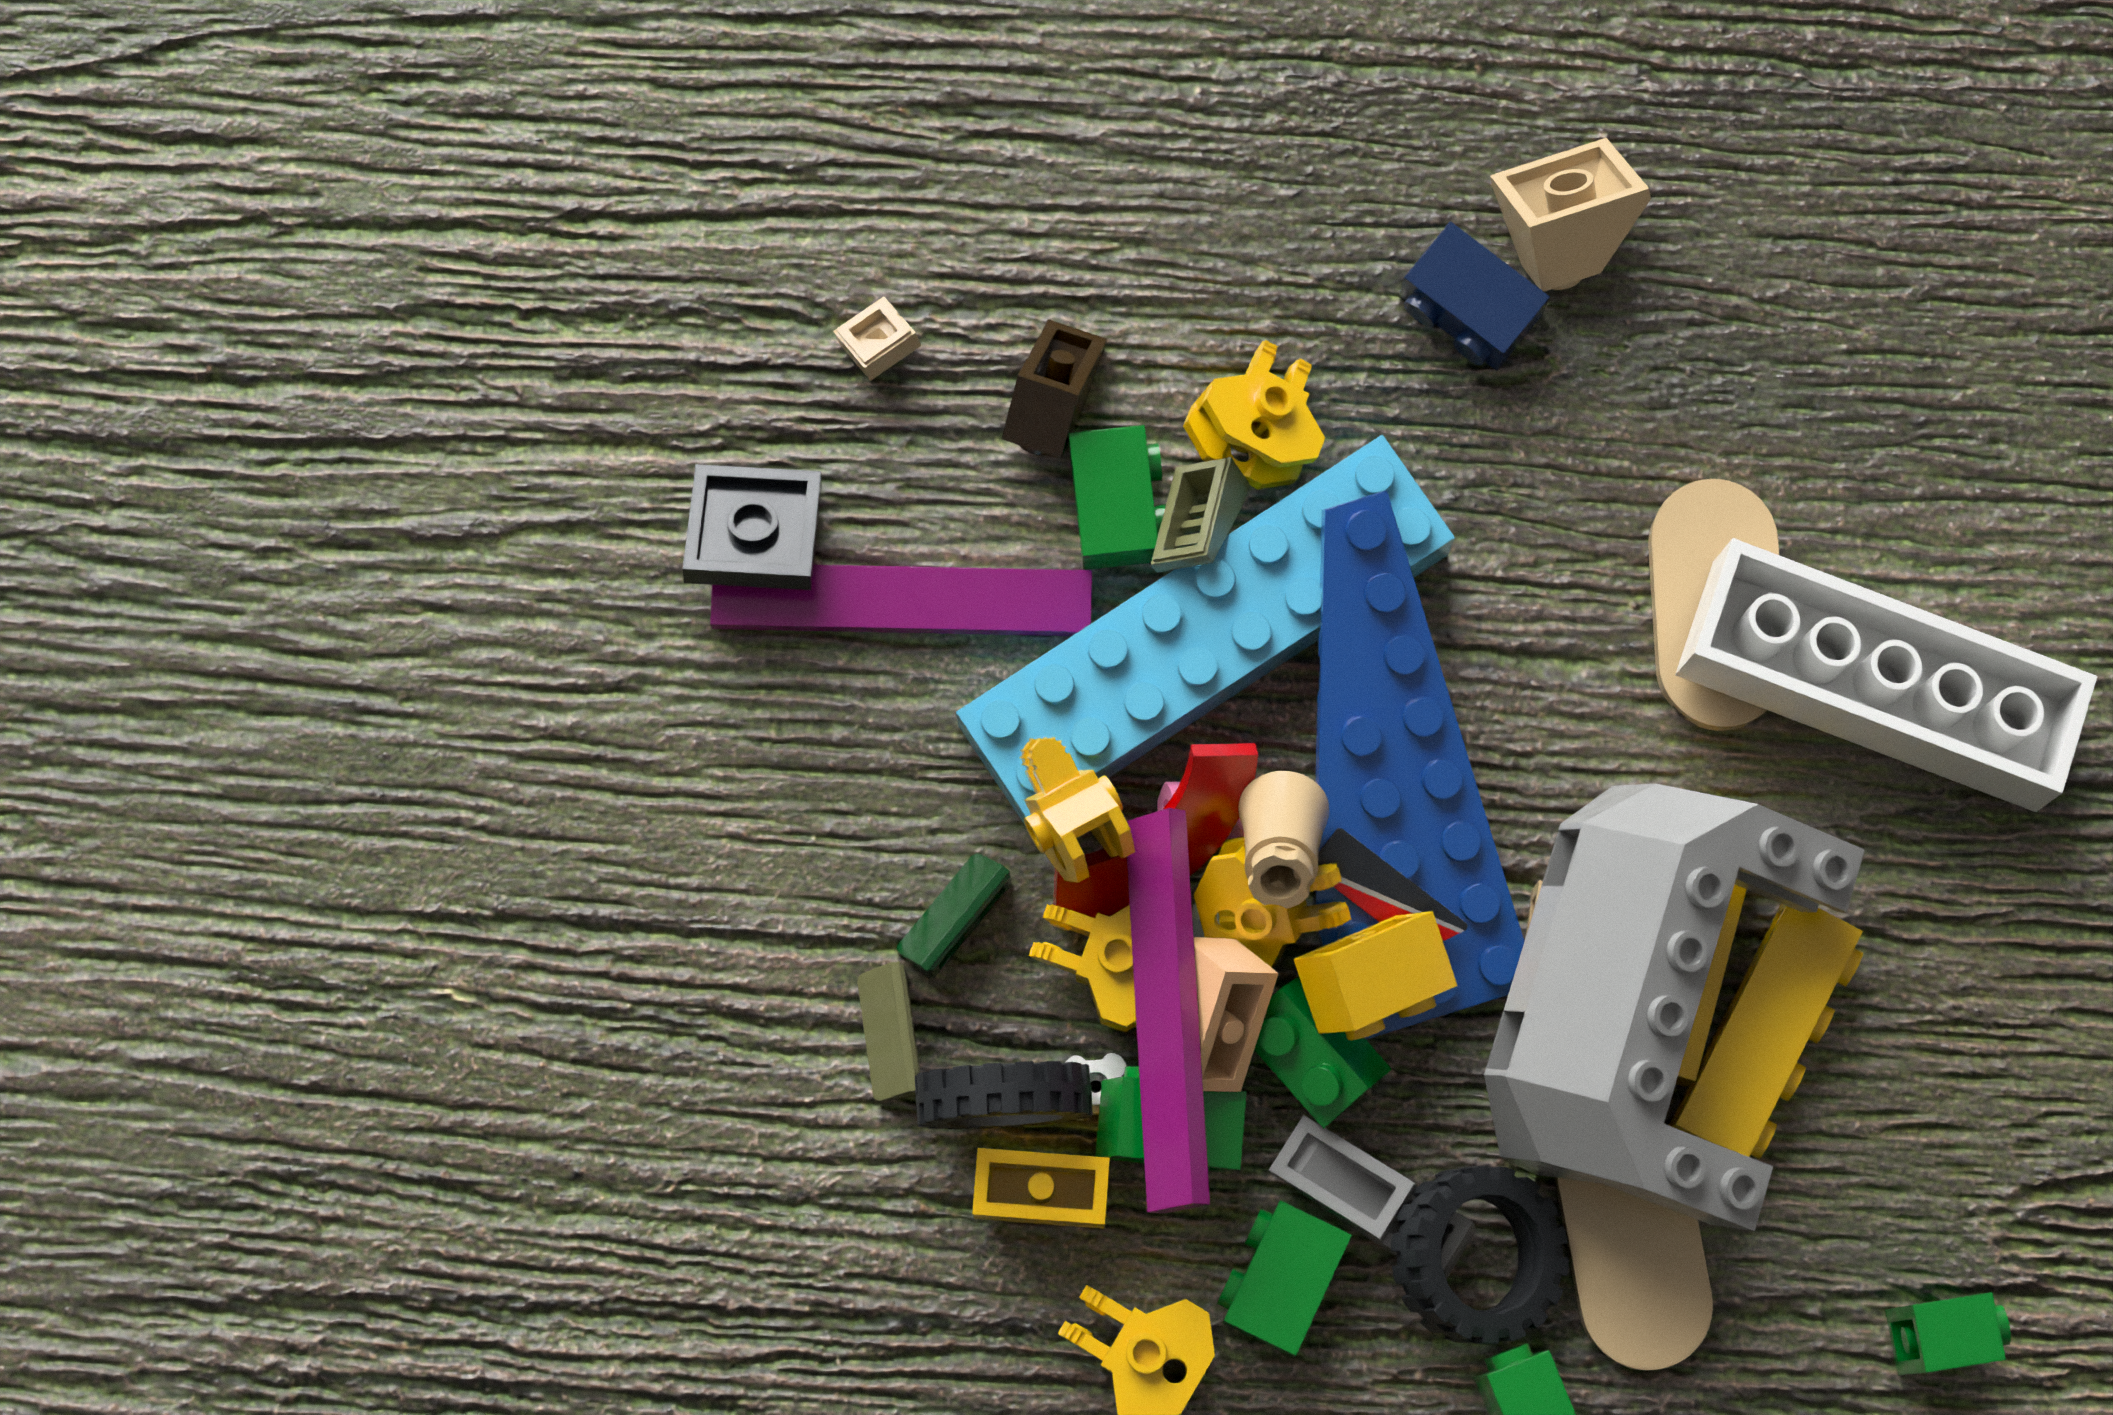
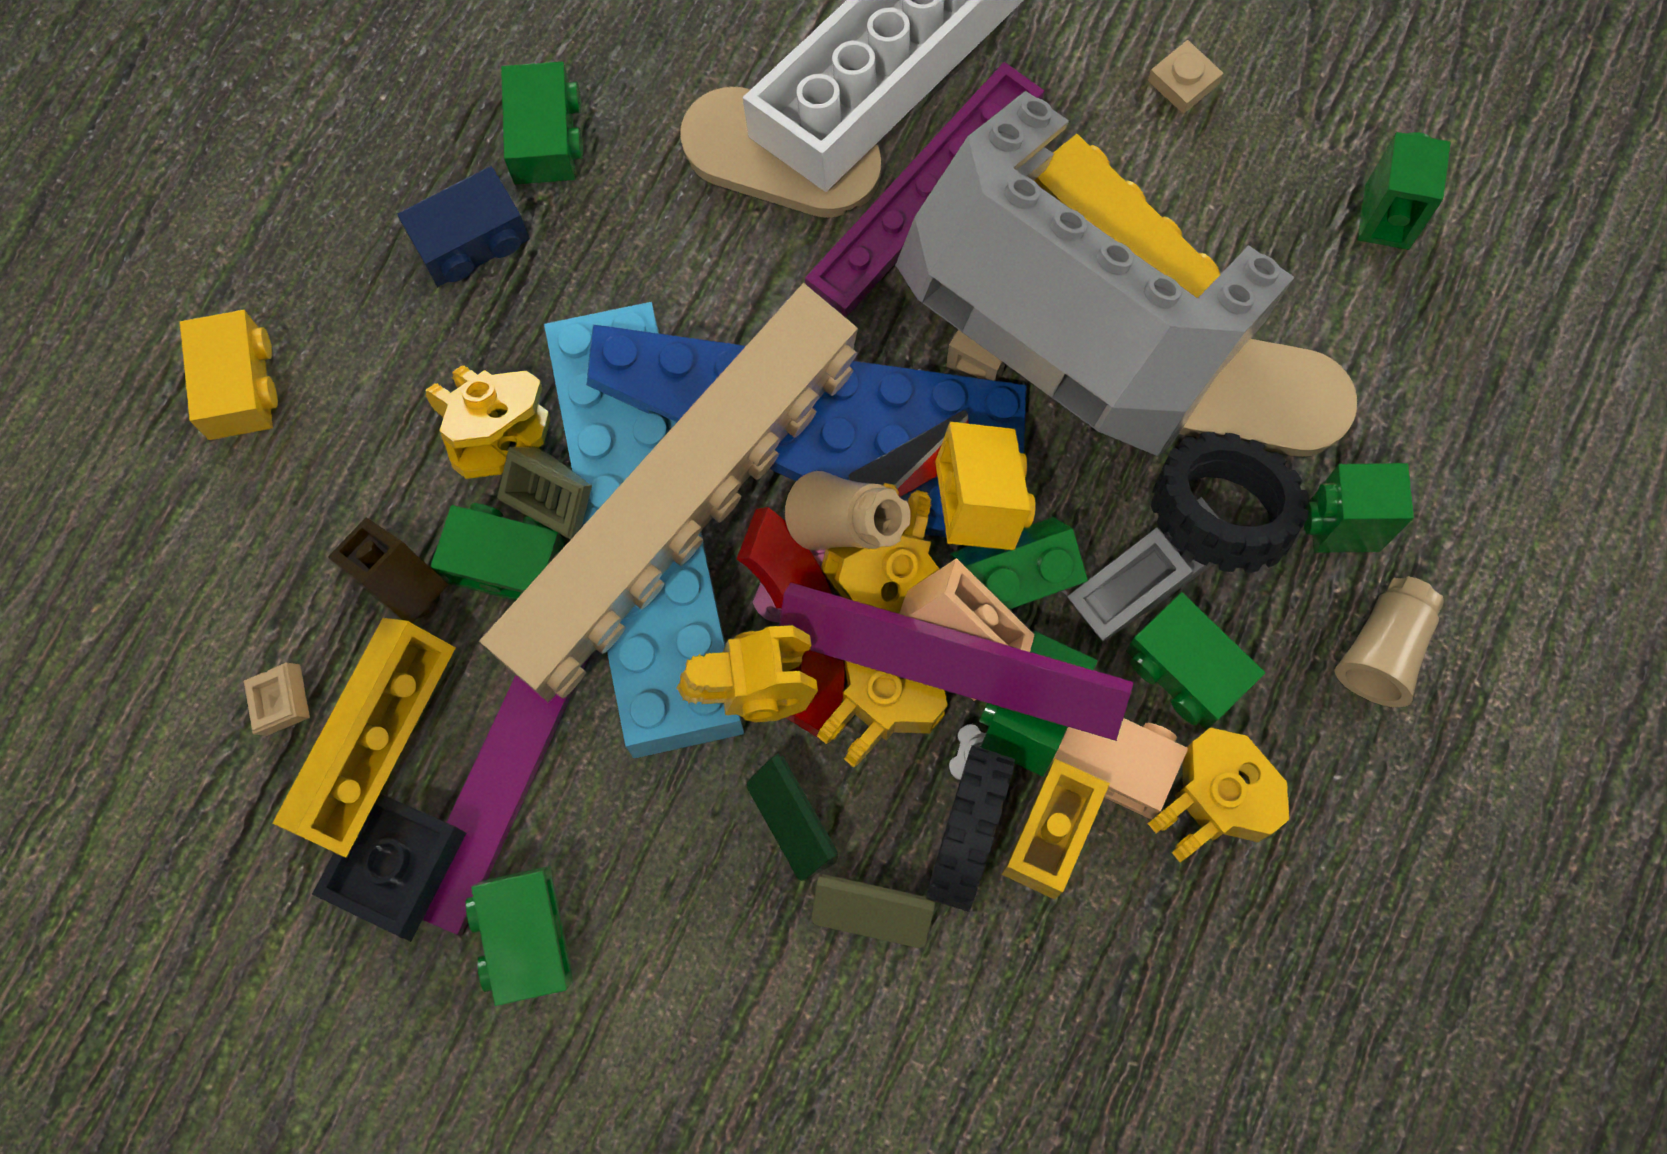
camera: 70 degrees left, 5 degrees down
(731, 687) = (519, 936): none -> green brick
(870, 445) = (364, 735): none -> yellow brick
(1144, 1249) = (1136, 765): none -> light nougat brick
(1202, 126) = (227, 374): none -> yellow brick
(1222, 653) = (674, 495): none -> tan brick
(1570, 211) = (431, 132): tan slope -> none
(1634, 324) = (539, 122): none -> green brick
(1651, 753) = (879, 234): none -> magenta plate
(2012, 1036) = (1185, 76): none -> tan plate

